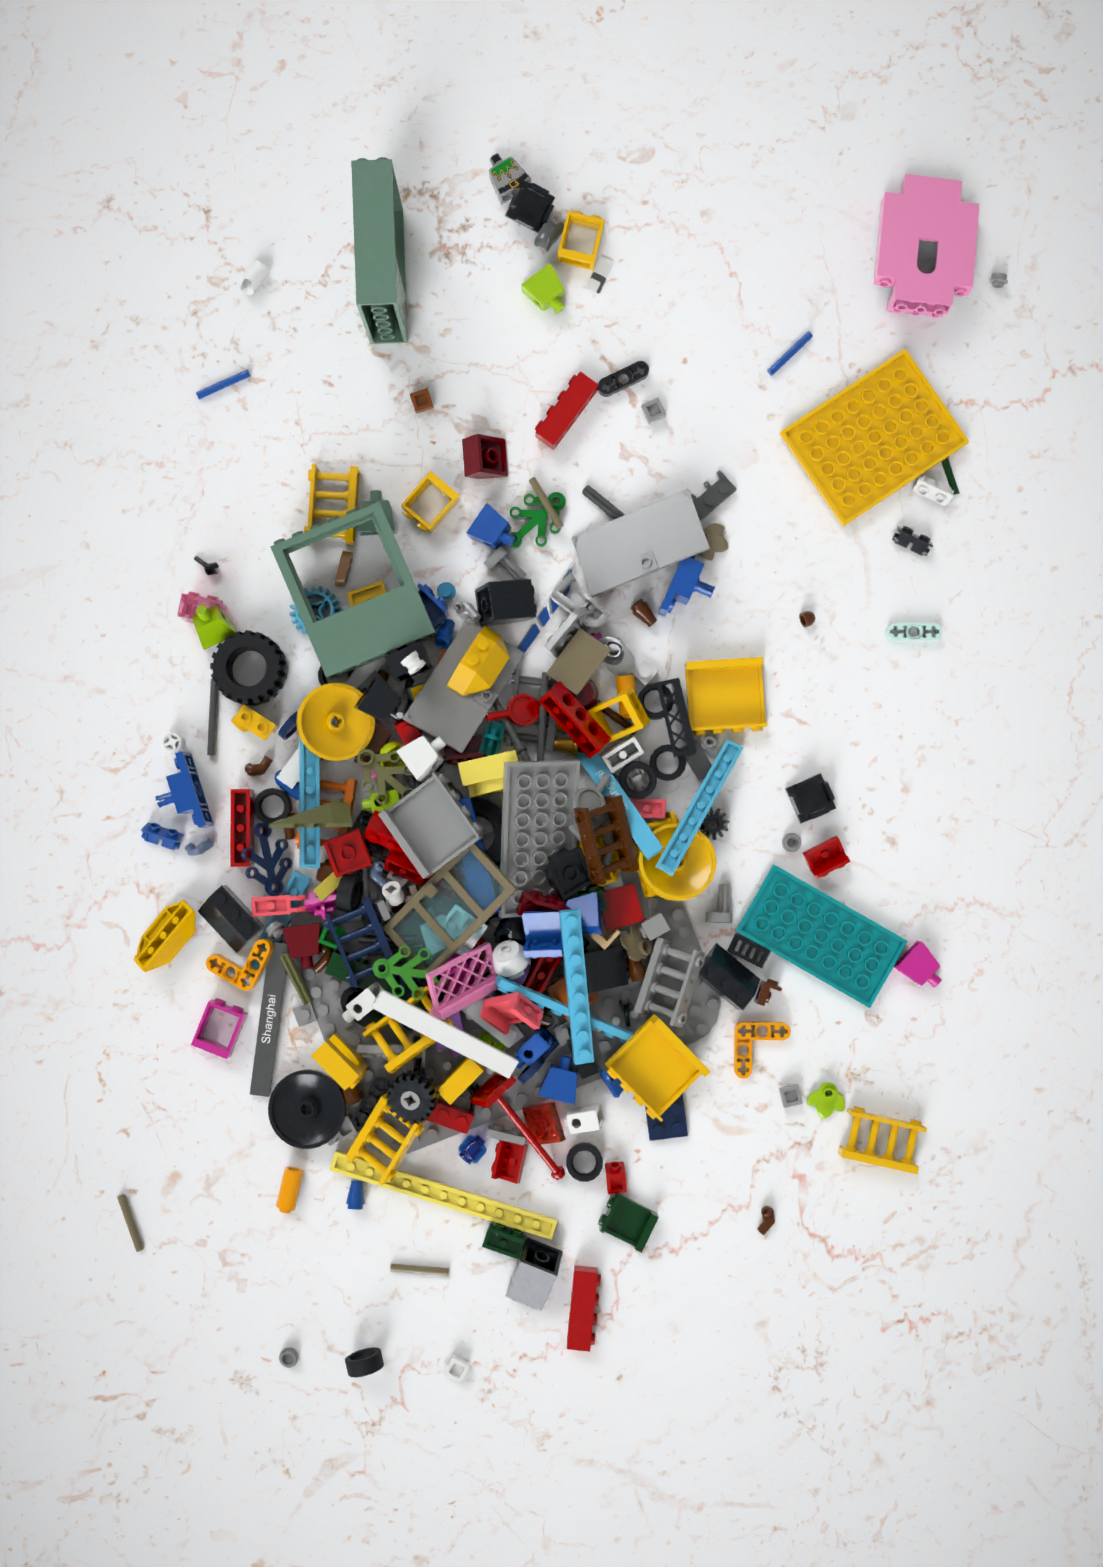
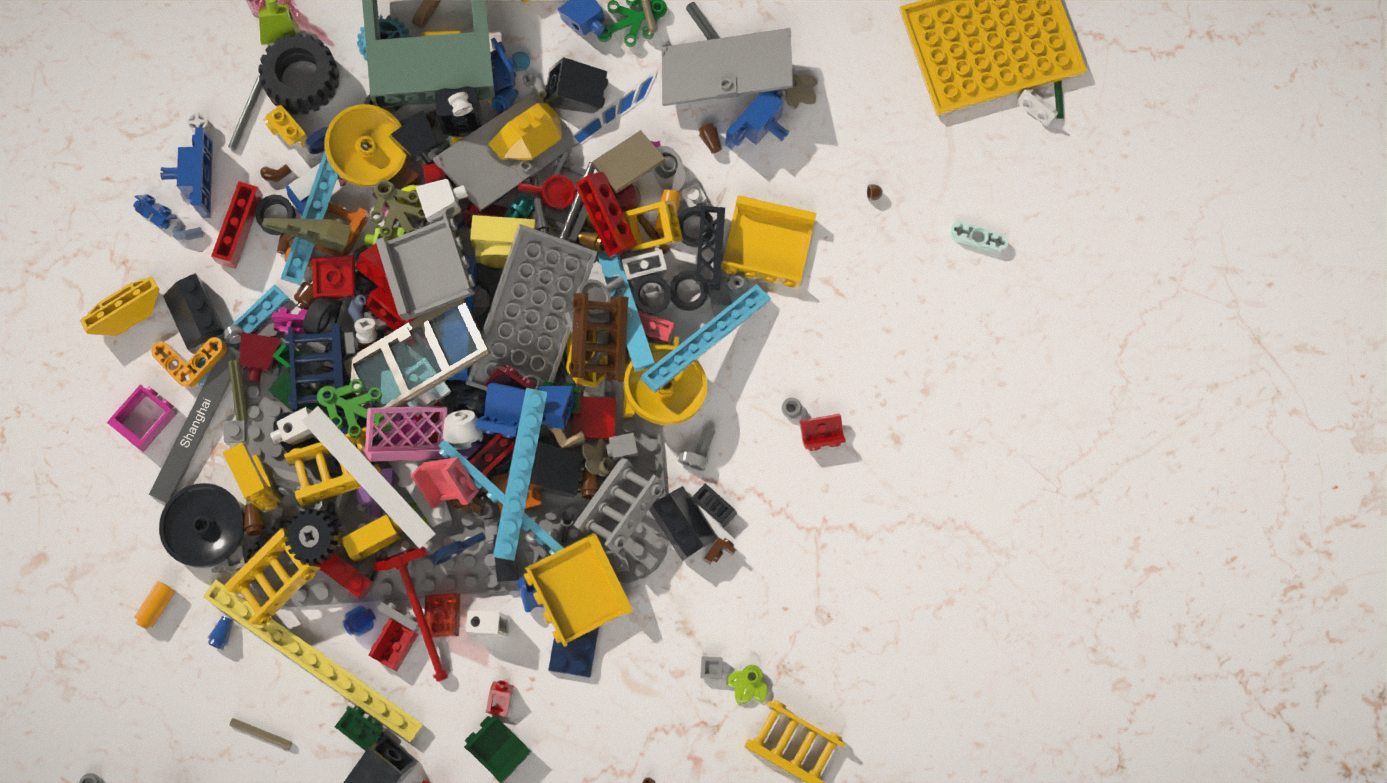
camera: 15 degrees right, 10 degrees down
(269, 861) = (250, 264): dark blue plant -> none
(275, 905) = (244, 310): coral hinge -> none
(323, 962) = (267, 383): reddish brown arm -> none
(327, 886) = (299, 305): light yellow sticker -> none
(500, 556) = (585, 43): light grey piece -> none
(538, 1043) = (463, 527): blue torso -> none
(560, 1082) = (473, 577): blue torso -> none
(567, 872) = (549, 358): black panel -> none
(579, 617) = (640, 119): light grey plate -> none
(584, 1177) = (455, 671): black tyre -> none
(713, 495) = (814, 50): dark grey hinge -> none
(719, 821) = (724, 364): black gear -> none
(747, 1040) = (683, 596): light orange beam -> none
(811, 798) = (825, 369): black panel -> none
(821, 936) = (793, 511): teal plate -> none
(919, 965) = (887, 572): dark pink torso -> none
(920, 542) = (1009, 153): black hinge -> none

